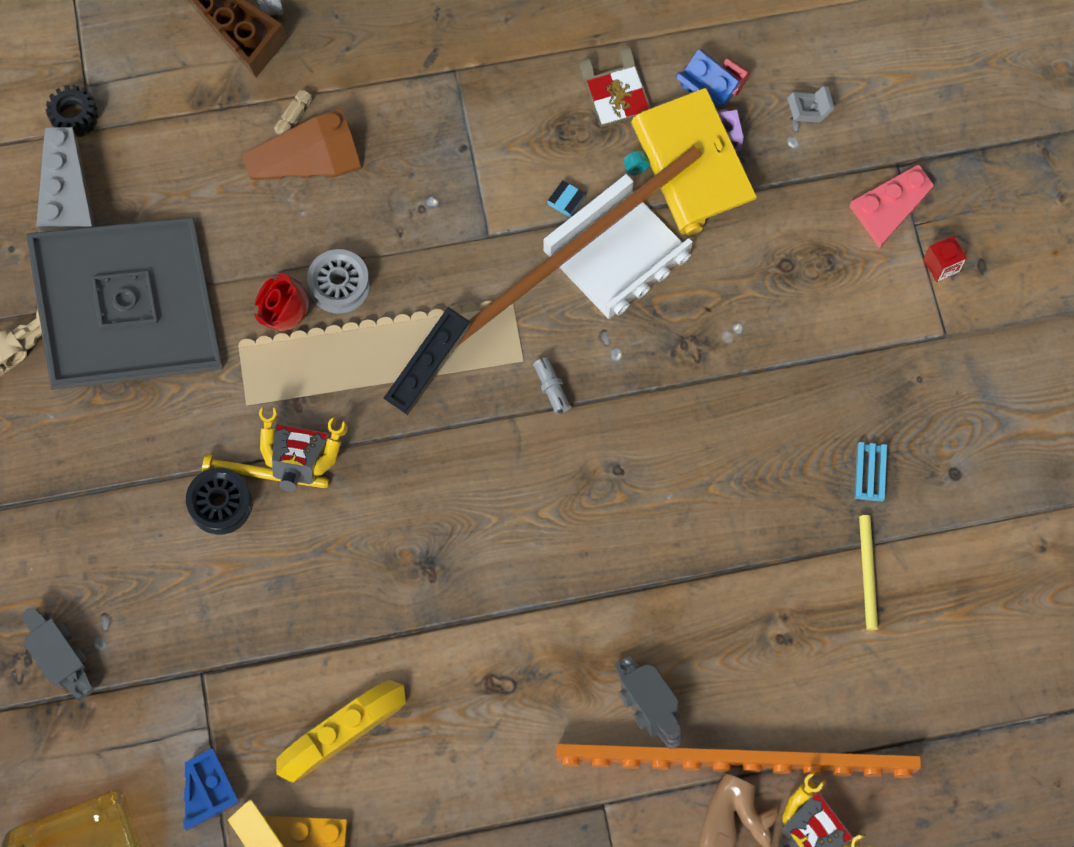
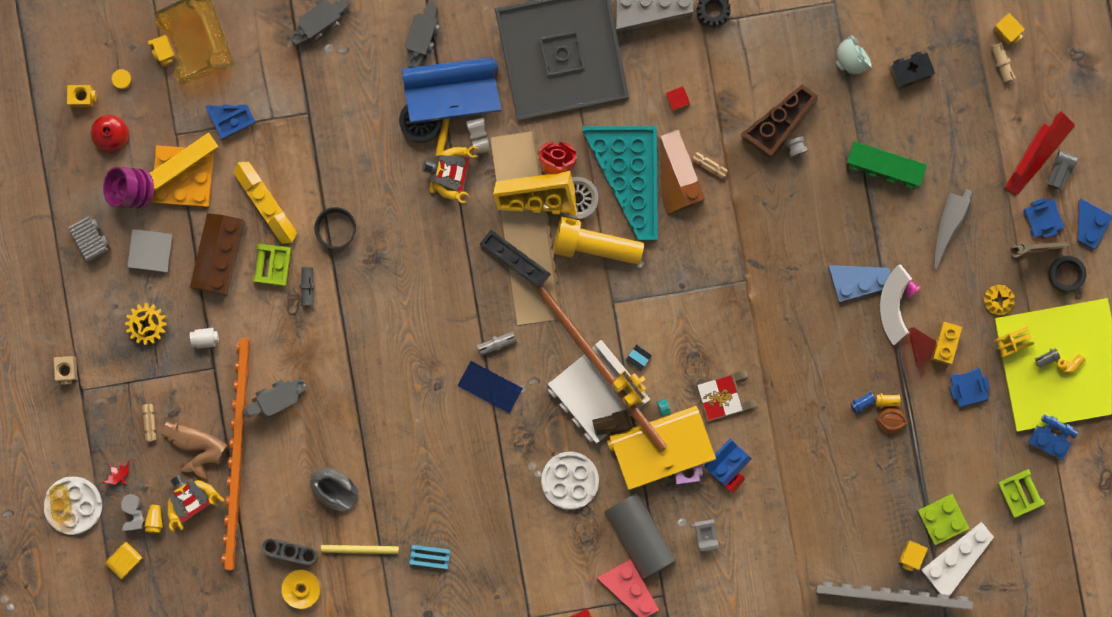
camera: 90 degrees right, 15 degrees up
(87, 502) = (421, 34): none -> dark grey hinge
(172, 455) = (451, 90): none -> blue door
(196, 155) = (677, 98): none -> red tile
(243, 415) = (478, 136): none -> light grey leg
(294, 212) = (630, 166): none -> teal wing
(331, 325) = (537, 193): none -> yellow wedge
(372, 594) = (324, 213): none -> black tyre
(397, 282) = (572, 238): none -> yellow piece
(422, 802) = (217, 253): none -> reddish brown slope
(439, 706) = (278, 265): none -> lime plate
(472, 661) = (307, 286): none -> dark grey pin
(557, 817) = (204, 338): none -> white brick
(612, 190) = (632, 385): none -> yellow hips
(615, 396) = (490, 386): none -> clear blue piece
(659, 218) = (616, 422): none -> dark brown piece
(745, 285) = (570, 480): none -> white tile
(781, 609) = (333, 489): none -> dark grey hair
(818, 190) = (640, 535): none -> dark grey brick
(890, 661) = (281, 547): none -> dark grey beam
(949, 647) = (291, 593): none -> yellow dish

